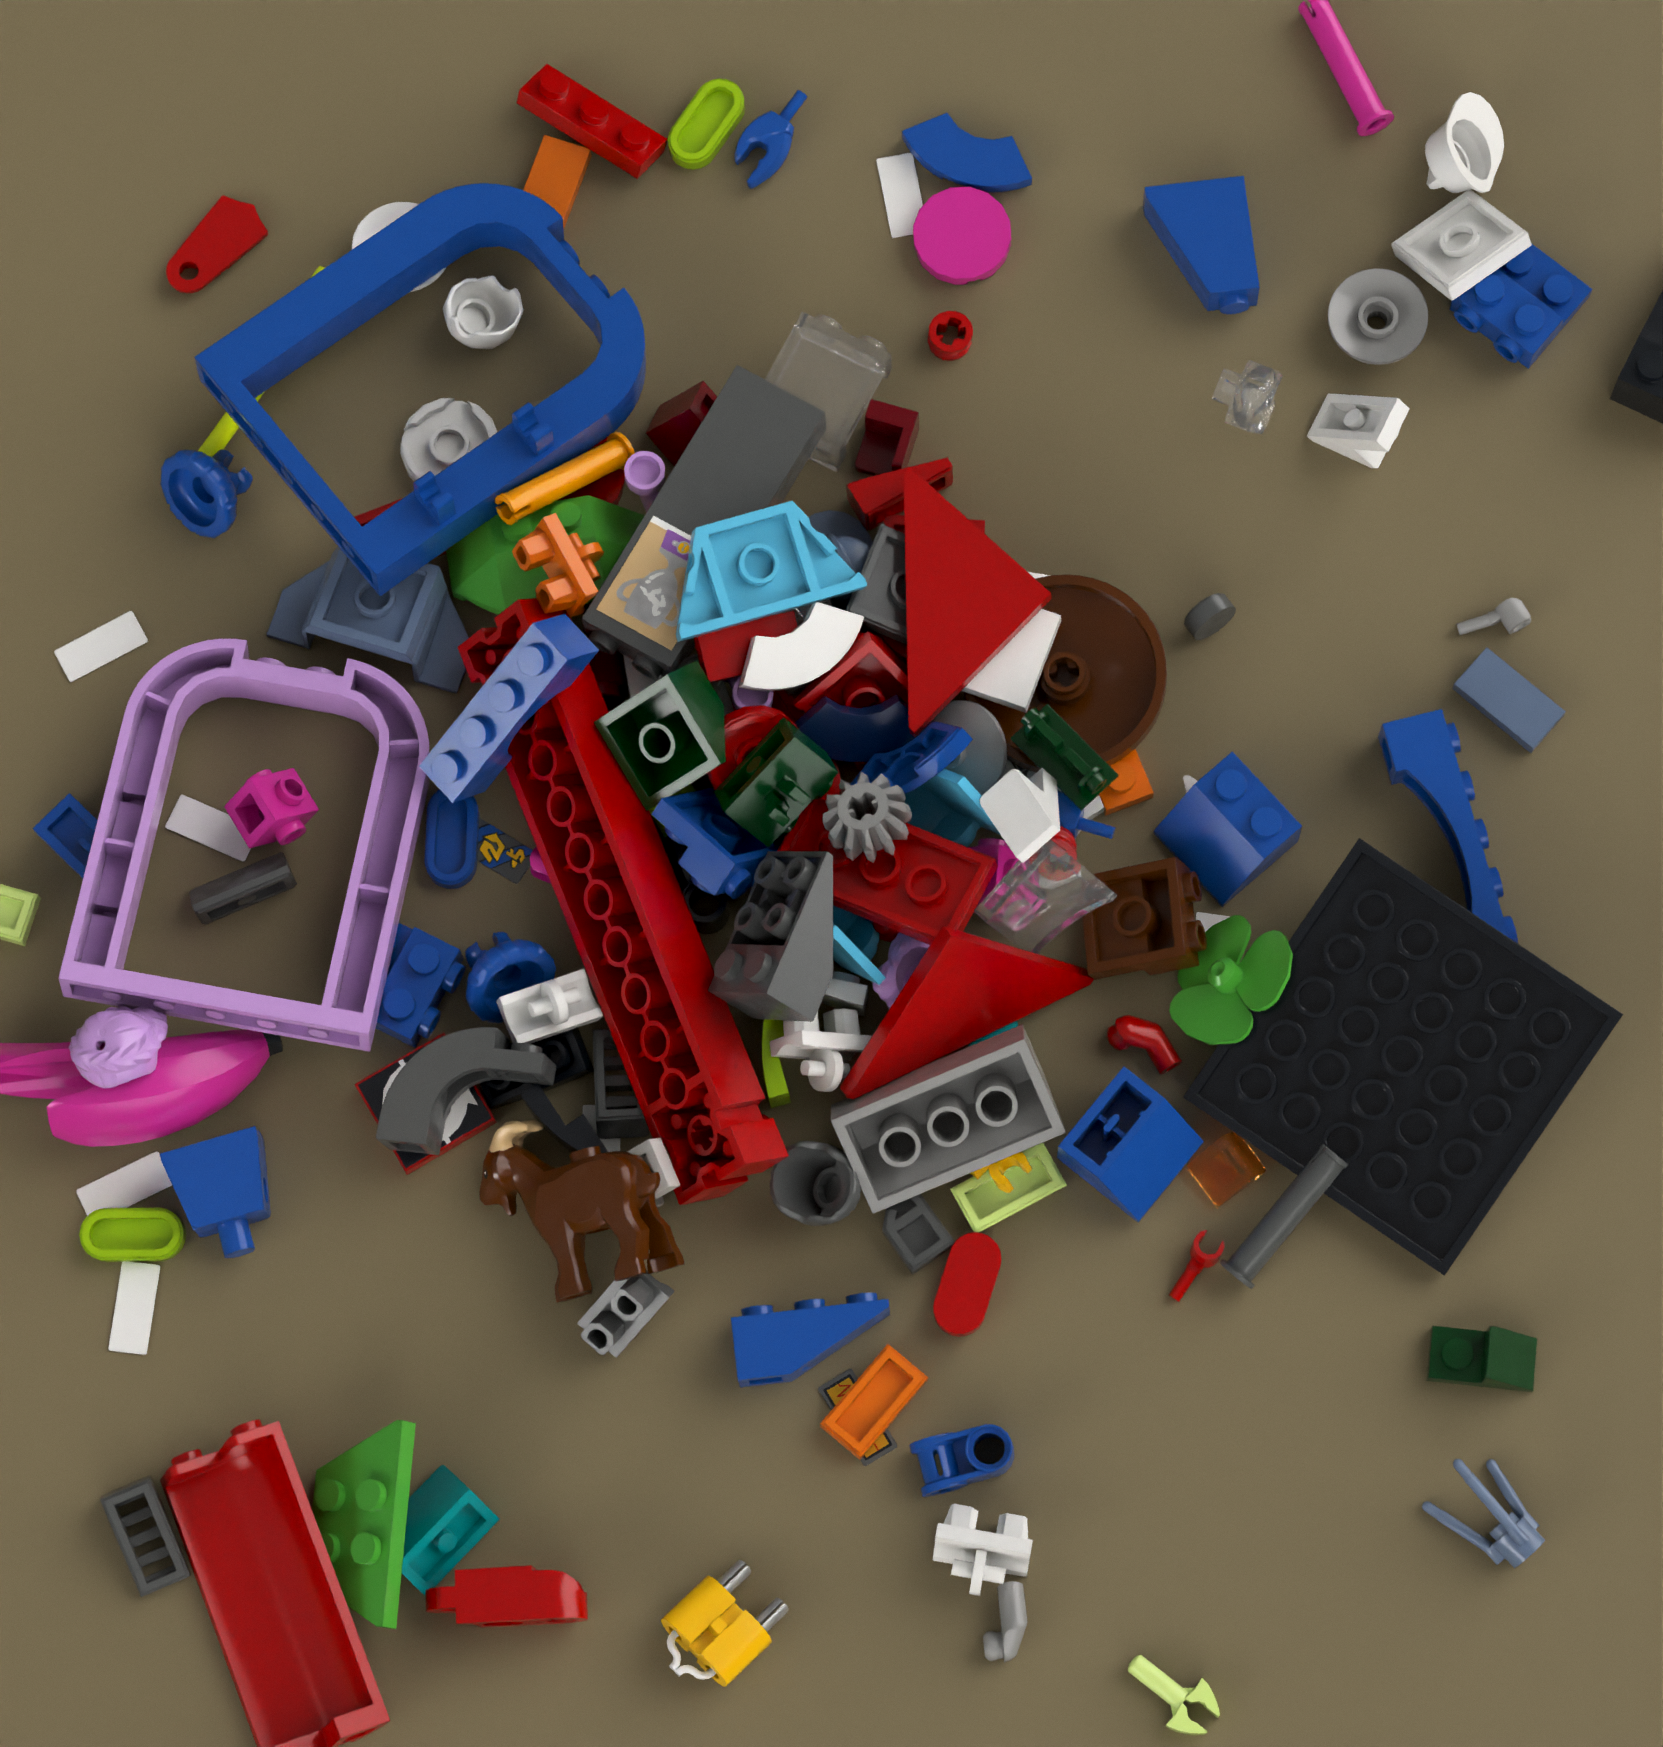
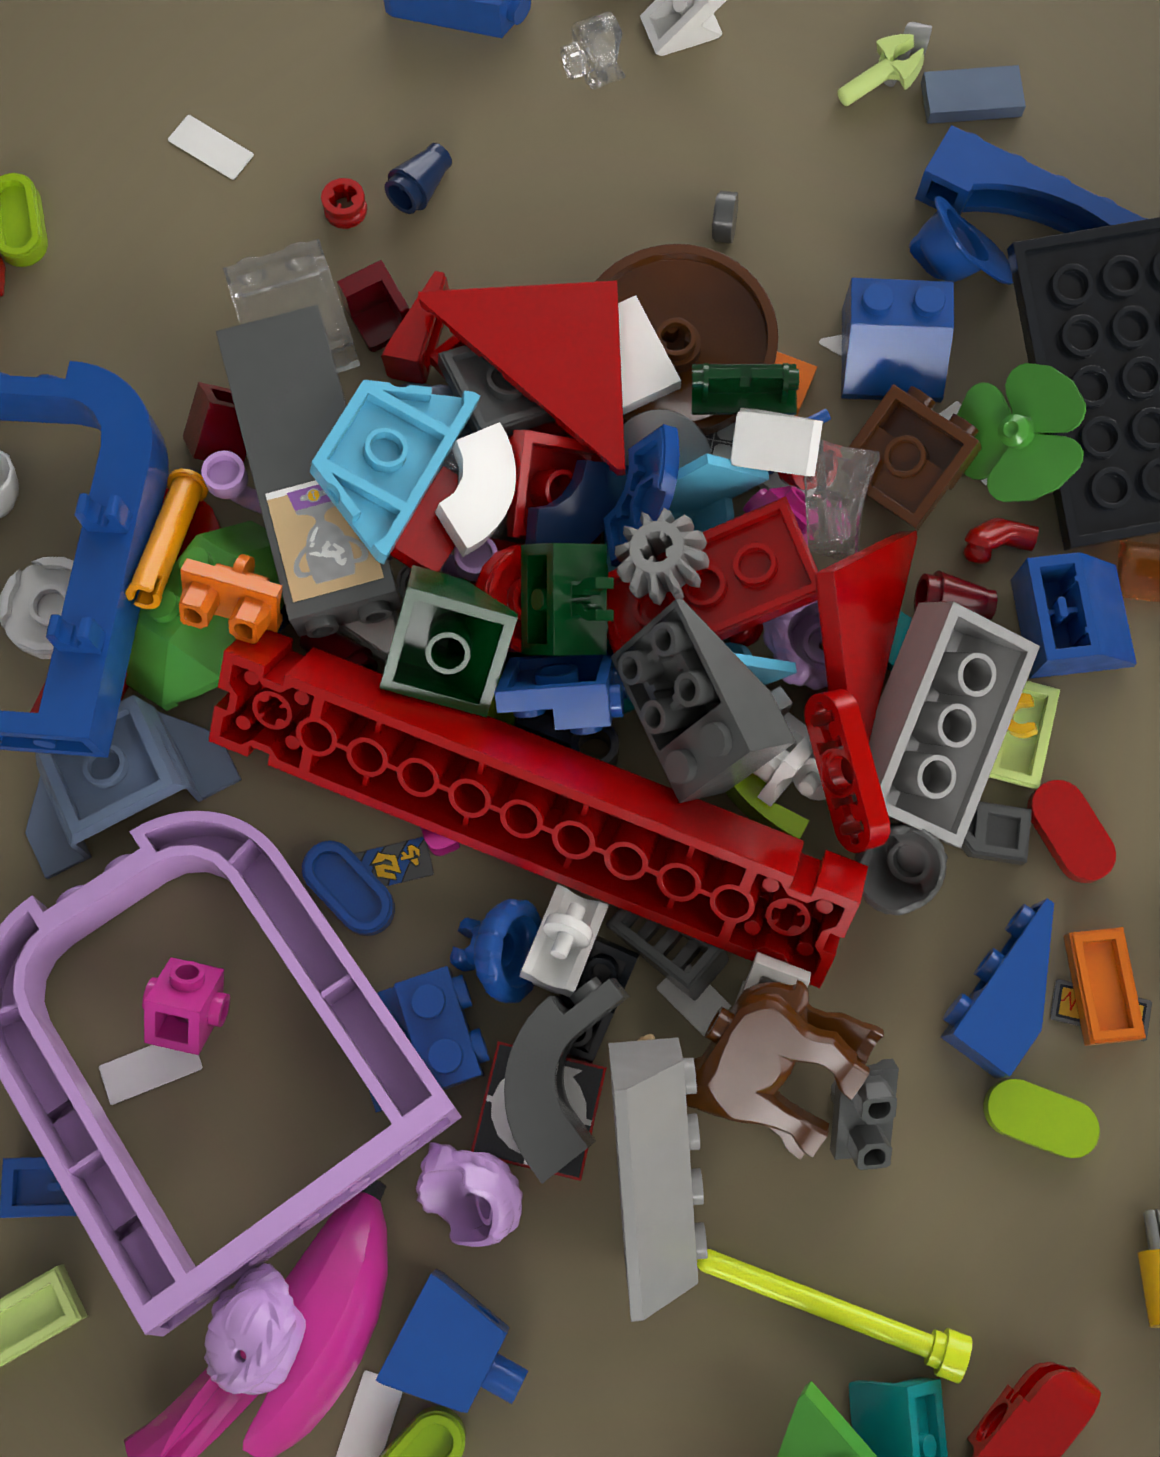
camera: 50 degrees left, 0 degrees up
(242, 888) = (222, 1091): dark grey slope -> none
(329, 1105) = (470, 1193): none -> lavender hair
(449, 1199) = (656, 1171): none -> light grey slope
(517, 1502) = (944, 1351): none -> neon yellow piece
(530, 675) = (297, 706): arch -> none
(572, 1136) = (686, 1016): black slope -> none
(738, 1437) = (1041, 1118): none -> lime tile
(770, 133) = (72, 184): blue hand -> none
(838, 1079) = (855, 747): none -> red beam
(962, 235) = (282, 132): dark pink tile -> none
(967, 159) = (231, 82): blue tile -> none
(1019, 369) = (416, 179): none -> dark blue cone
(1062, 1051) = (948, 588): none -> dark red cone
(1353, 803) = (955, 249): none -> blue piece
(1458, 616) = (886, 69): none -> yellowish green bar

